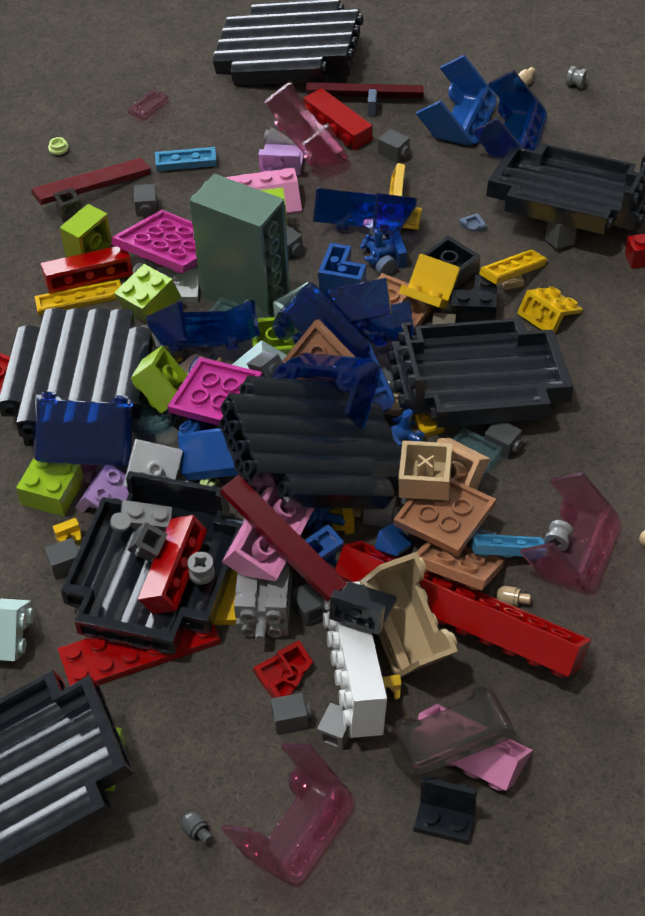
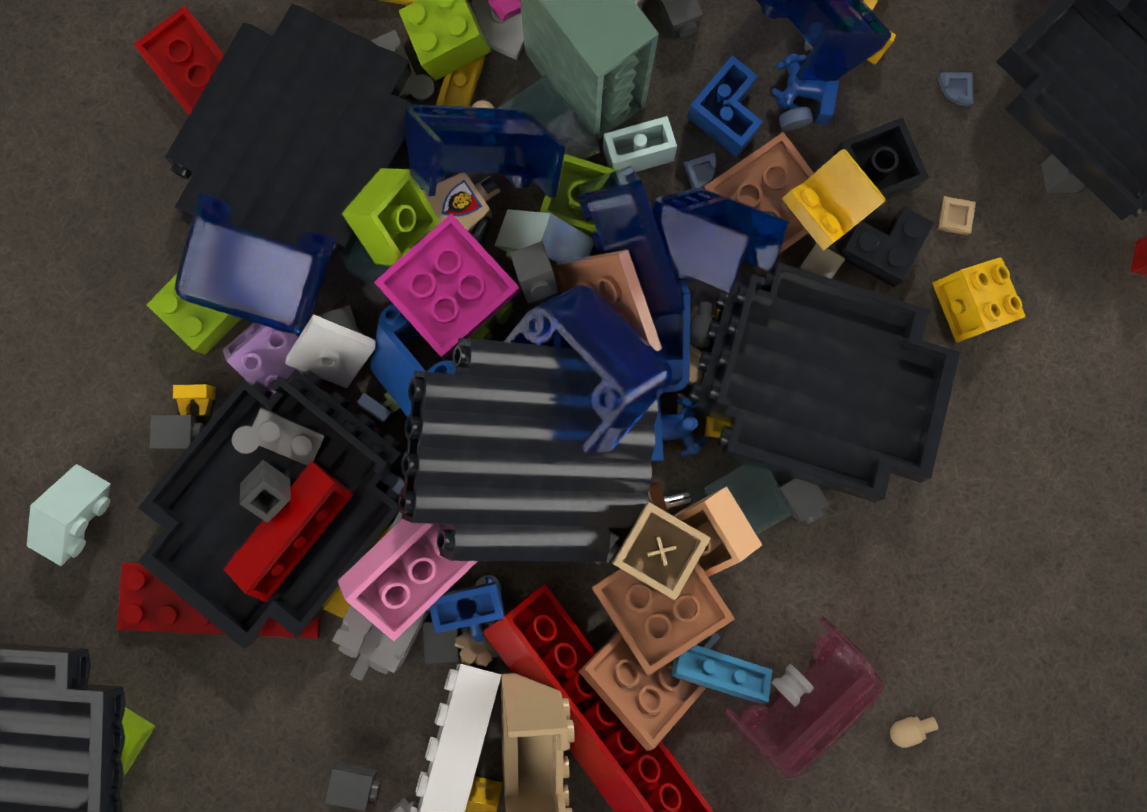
camera: 20 degrees right, 35 degrees up
(197, 573) = (322, 561): light grey wheel -> none
(283, 537) = (417, 598): dark red tile -> none
(284, 670) = (385, 715): red slope -> none
(361, 607) = (477, 735): black bracket -> none
(393, 540) = (580, 606): blue slope -> none
(513, 266) = (966, 210): yellow tile -> none
(513, 596) = (691, 739): tan cylinder -> none

